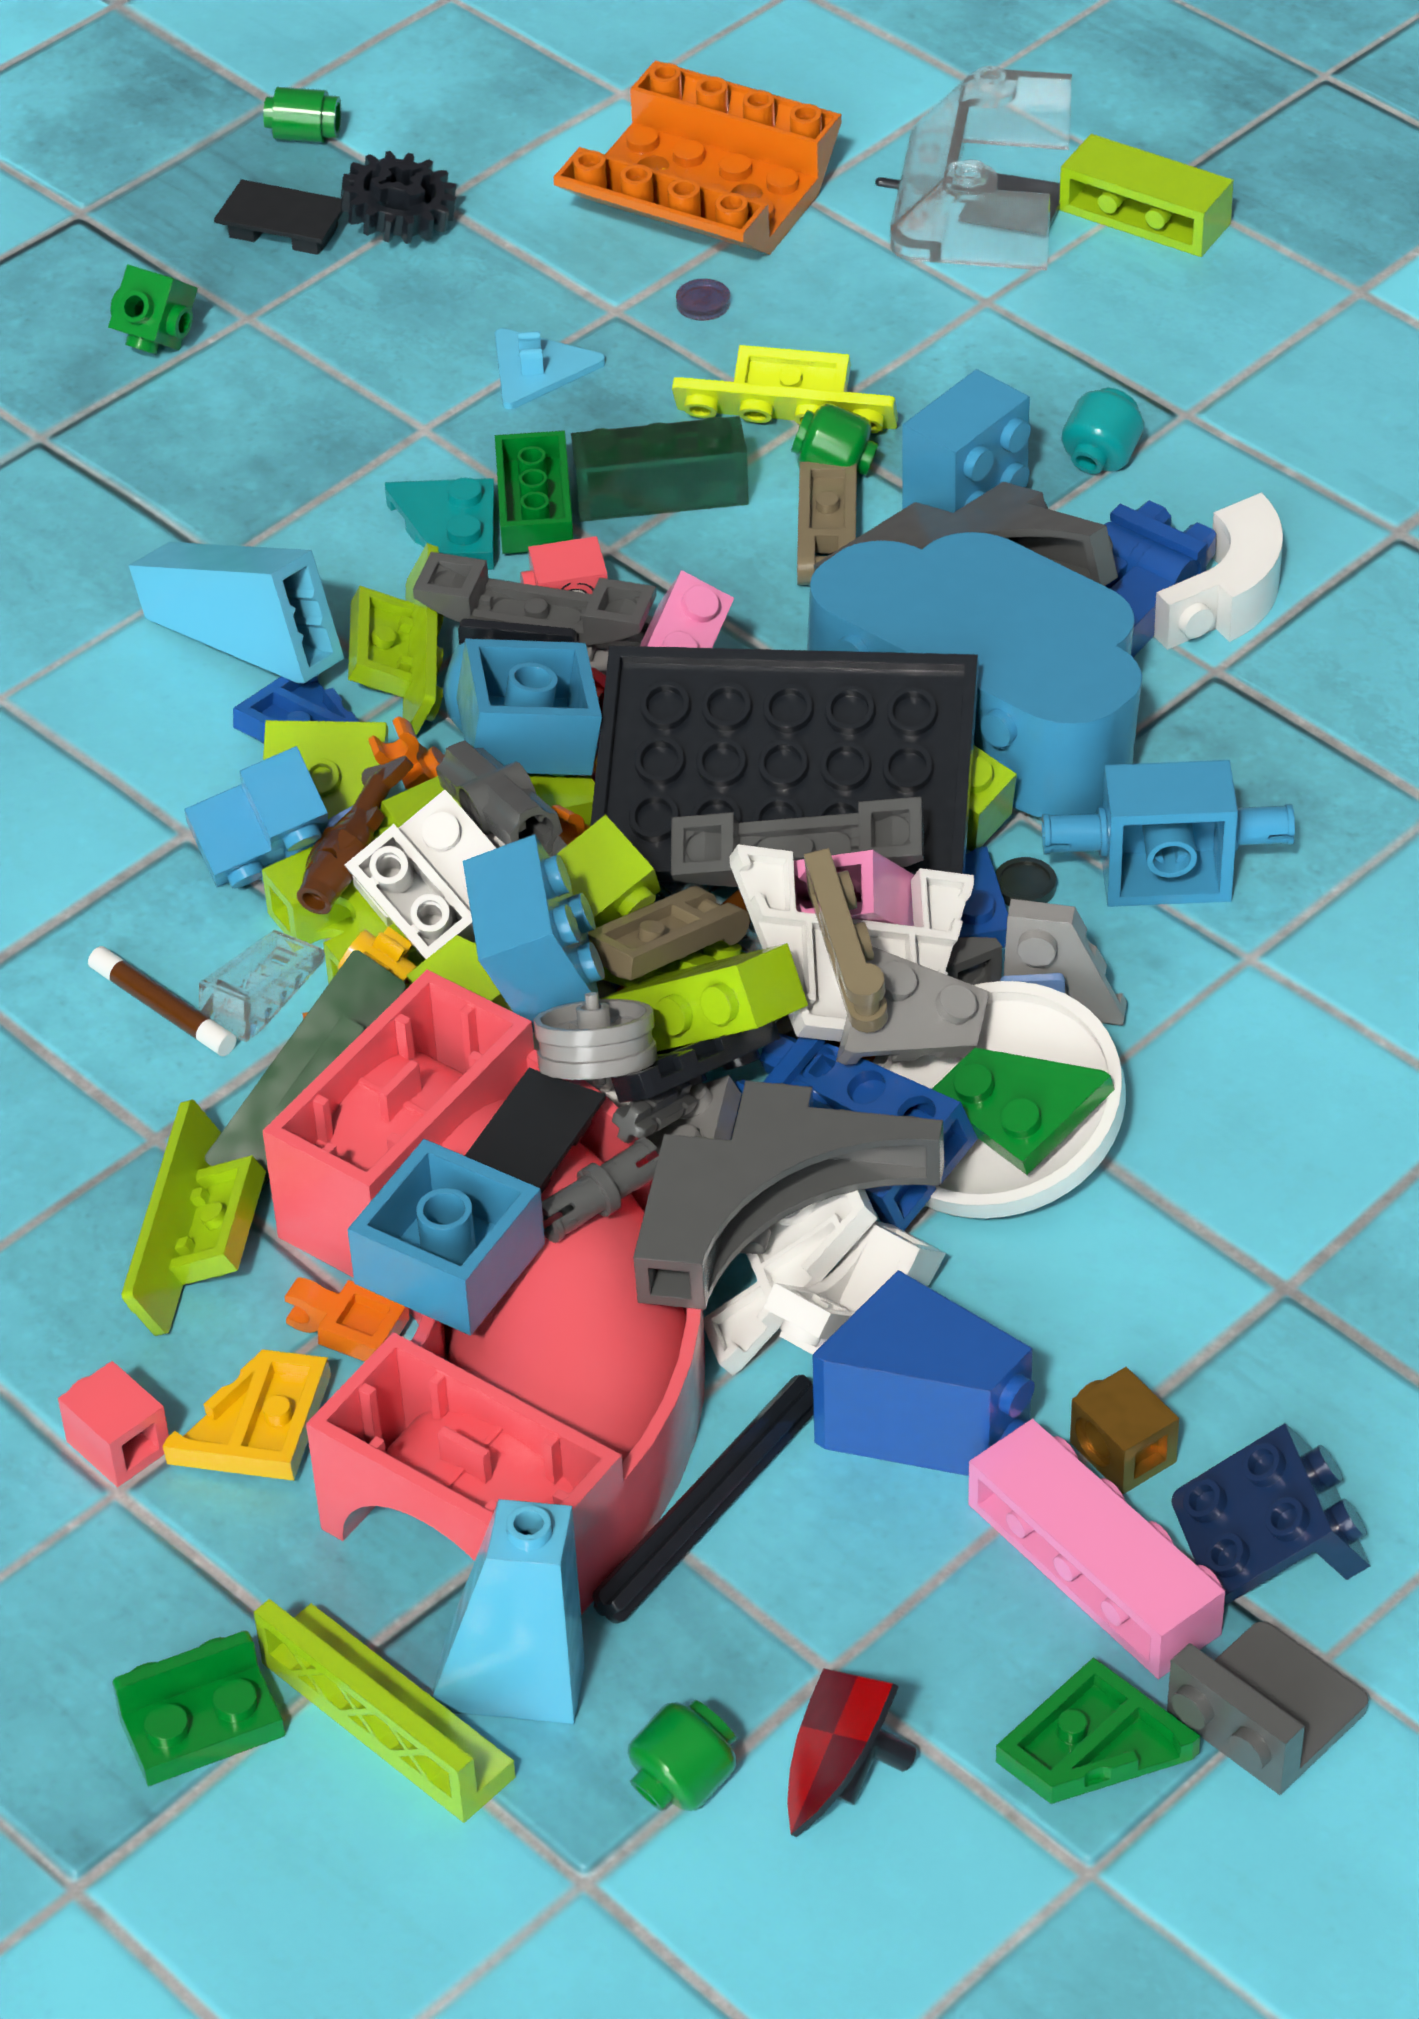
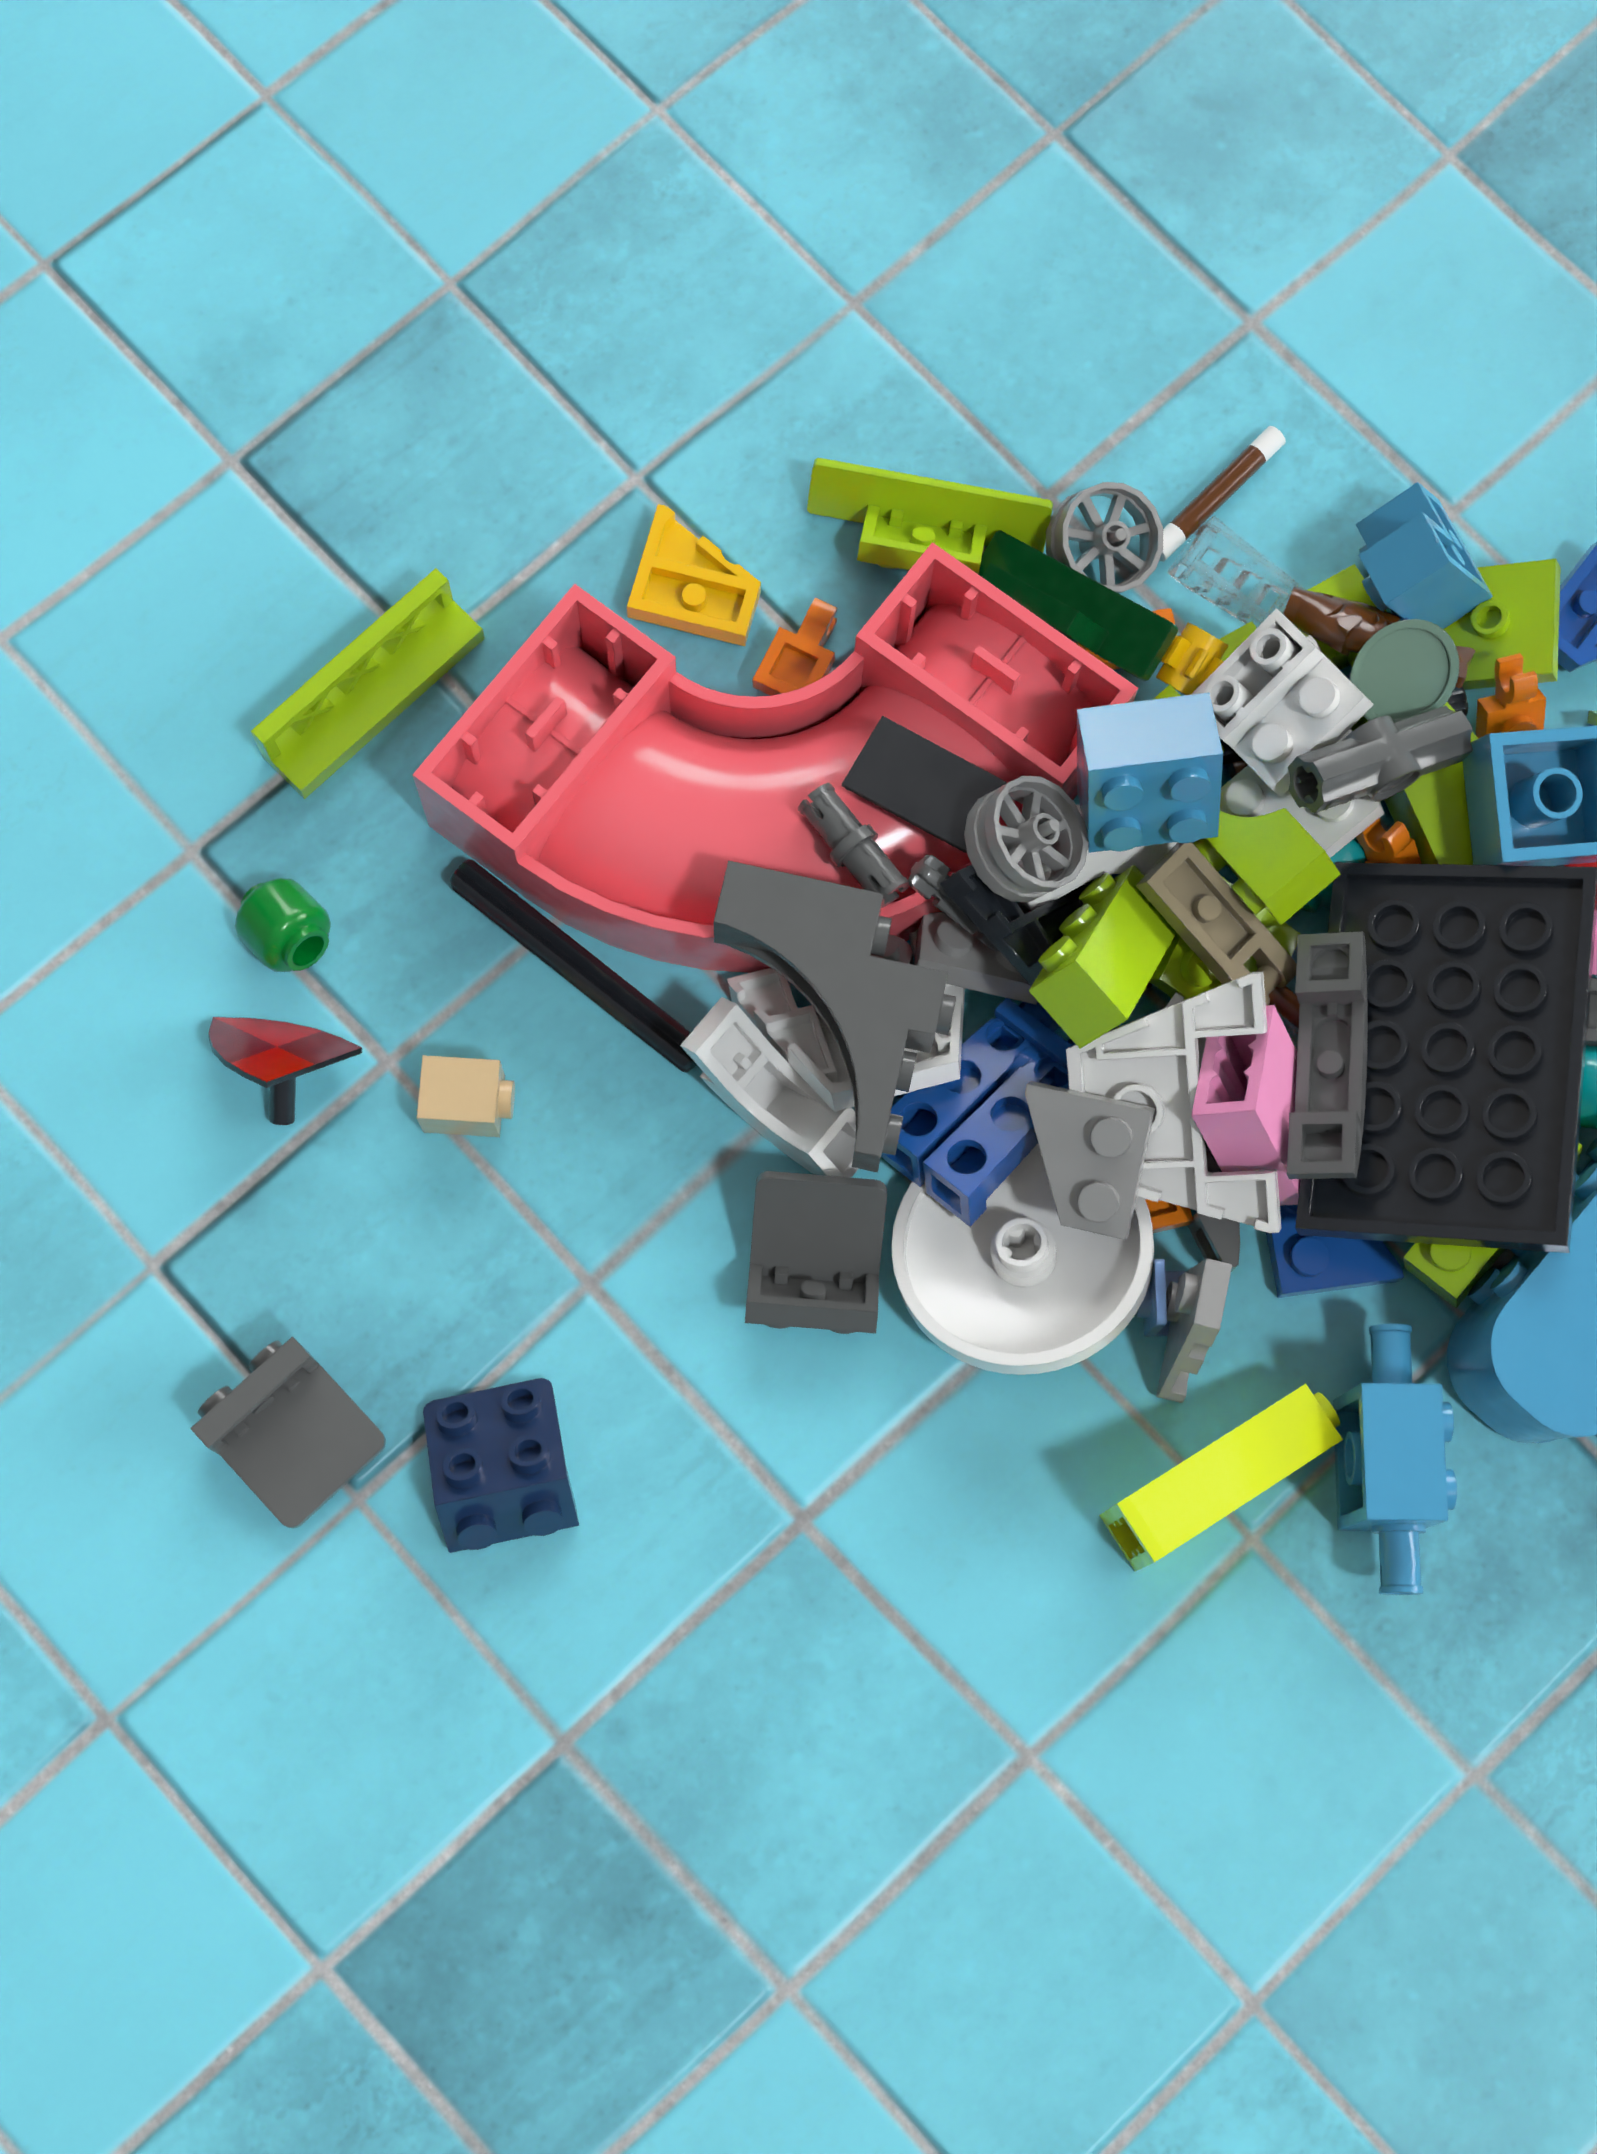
camera: 85 degrees right, 30 degrees up
(114, 1423) = (689, 463): coral brick -> none
(196, 1707) = (380, 541): green bracket -> none
(217, 1062) = (1110, 537): none -> light grey wheel
(396, 783) = (1406, 669): none -> sand green piece
(446, 1236) = (776, 698): dark azure brick -> none
(518, 1621) = (373, 782): medium azure slope -> none
(846, 943) = (1135, 1076): dark tan plate -> none
(871, 1576) = (464, 1096): none -> tan brick
(919, 1381) = (655, 1150): blue slope -> none
(1023, 1102) = (992, 1262): green wing -> none
(1023, 1272) = (816, 1252): none -> dark grey bracket
(1026, 880) = (1357, 1311): pearl dark grey piece -> none
(1093, 1737) = (274, 1274): green wing -> none
(1096, 1546) = (477, 1298): bright pink brick -> none
(1124, 1429) = (614, 1335): pearl gold brick -> none
(1209, 960) = (1222, 1476): none -> neon yellow slope

